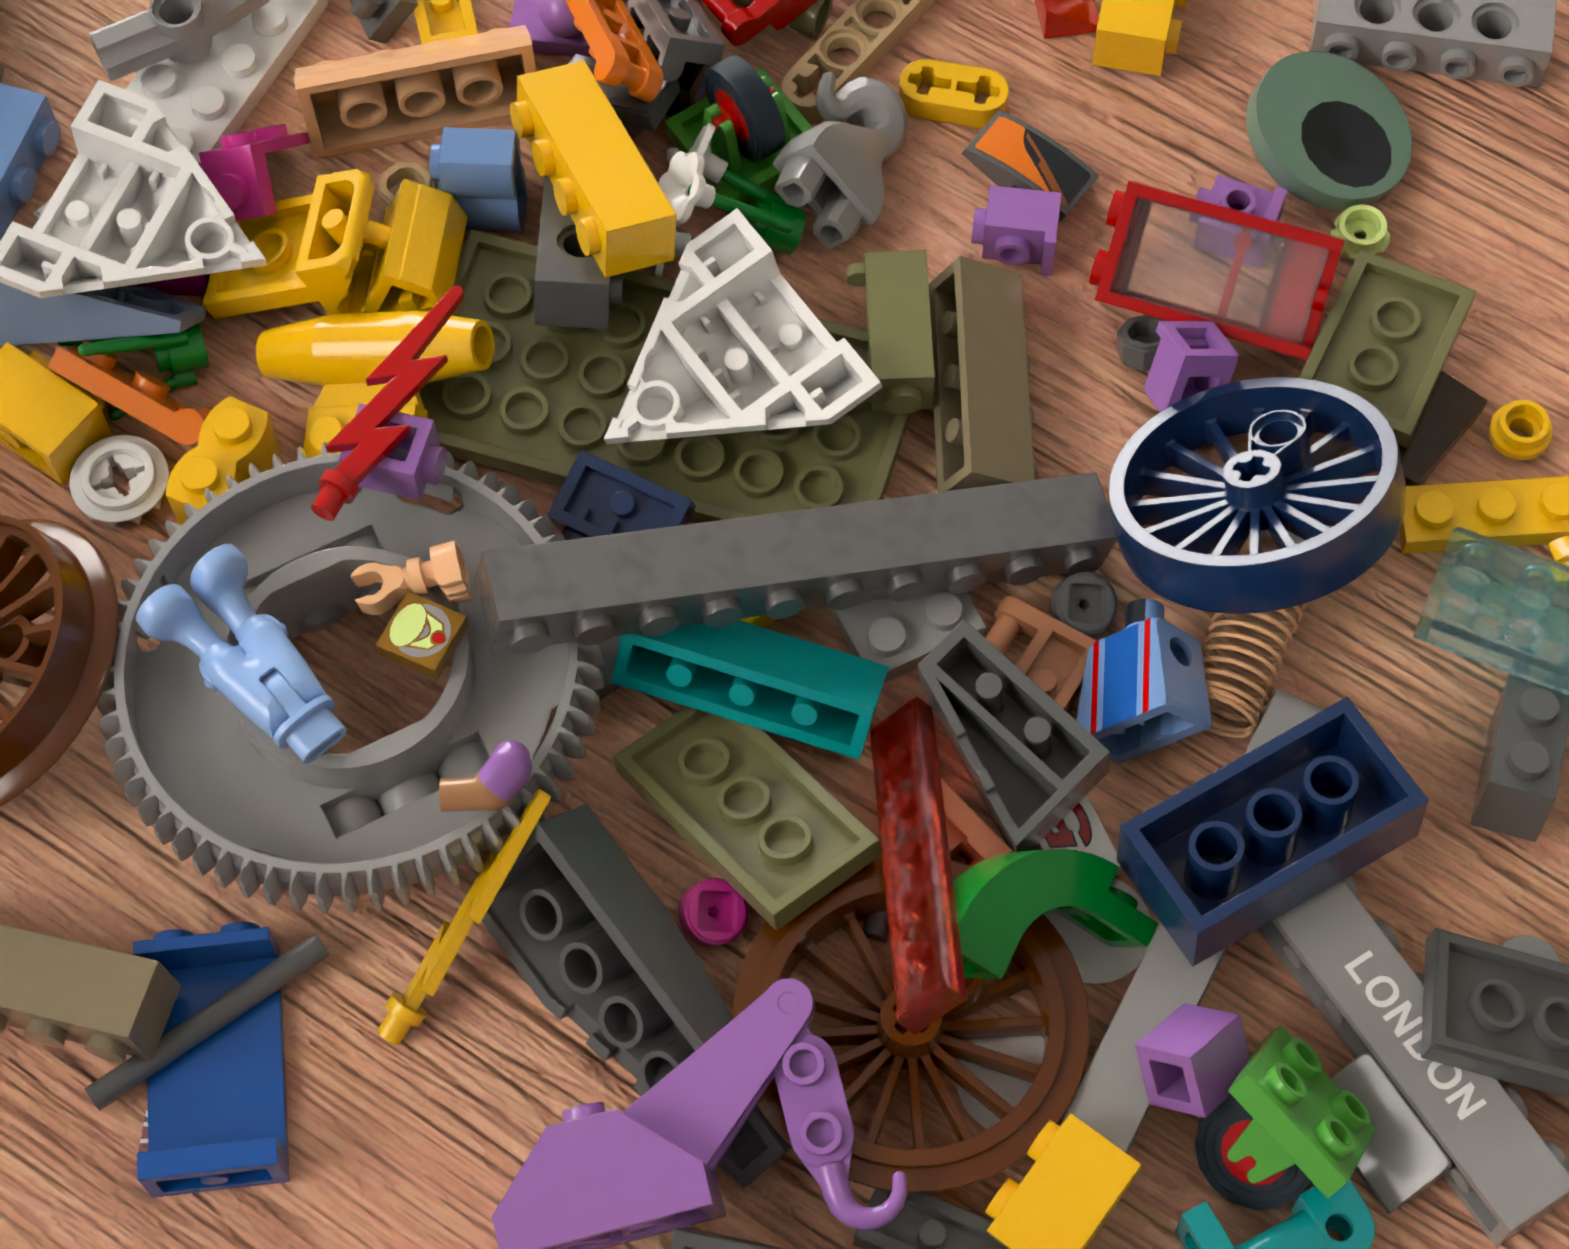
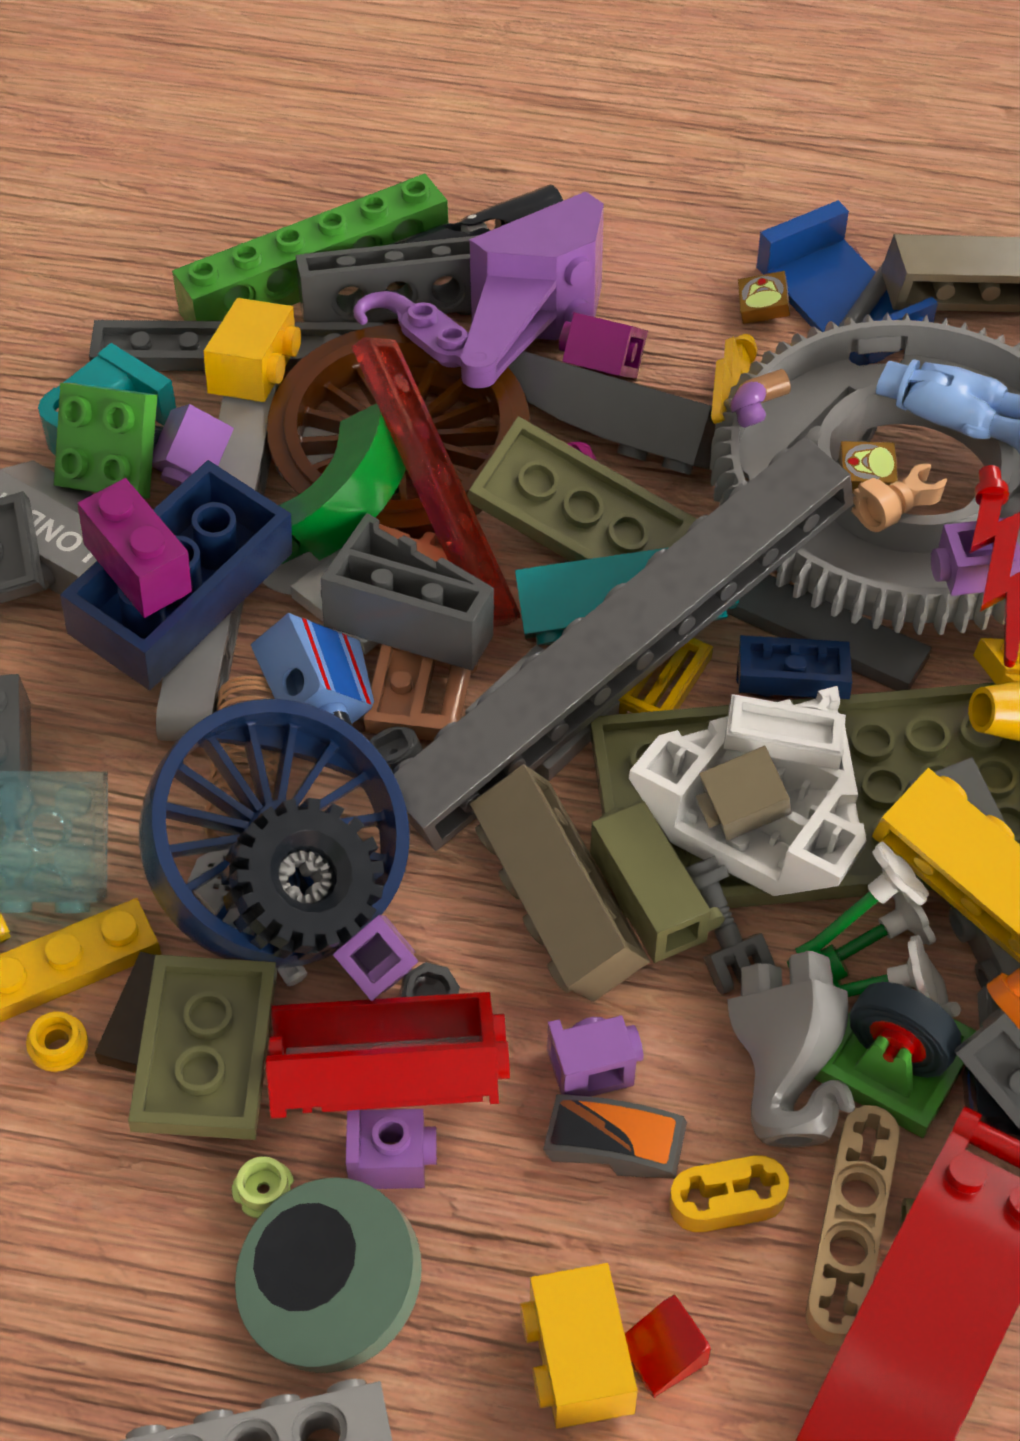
camera: 155 degrees right, 10 degrees down
(322, 1095) = (763, 297): none -> pearl gold tile
(594, 1034) = (603, 345): none -> magenta brick
(699, 379) = (786, 731): none -> white tile
(779, 323) = (743, 794): none -> dark tan brick
(841, 312) = (734, 948): none -> dark grey hinge
(1252, 399) = (322, 849): none -> black bush
(1332, 788) = (135, 547): none -> magenta brick

